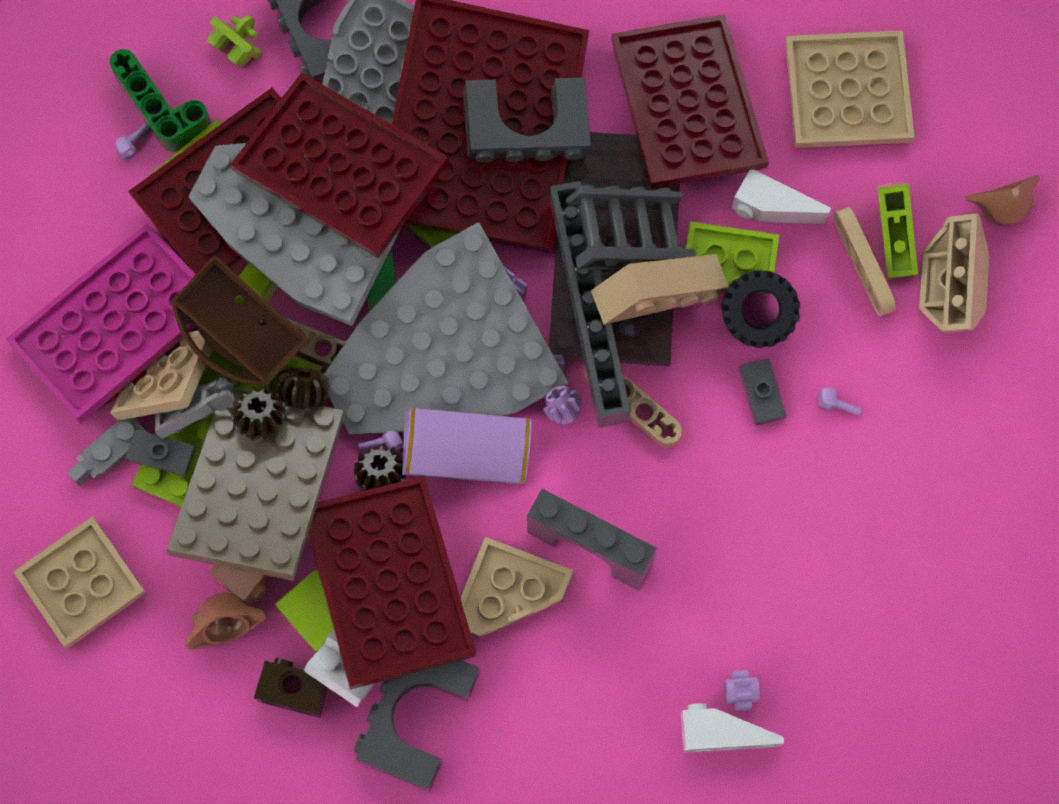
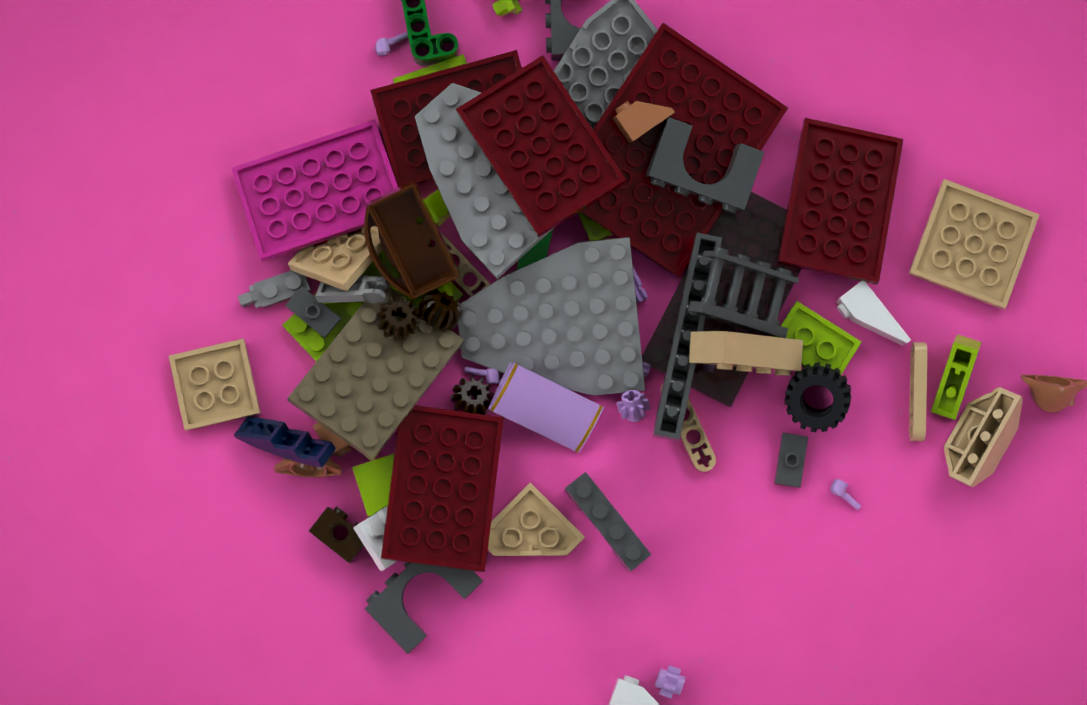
camera: 20 degrees right, 10 degrees up
(180, 609) = (284, 442): none -> dark blue slope
(435, 96) = (639, 118): none -> nougat slope

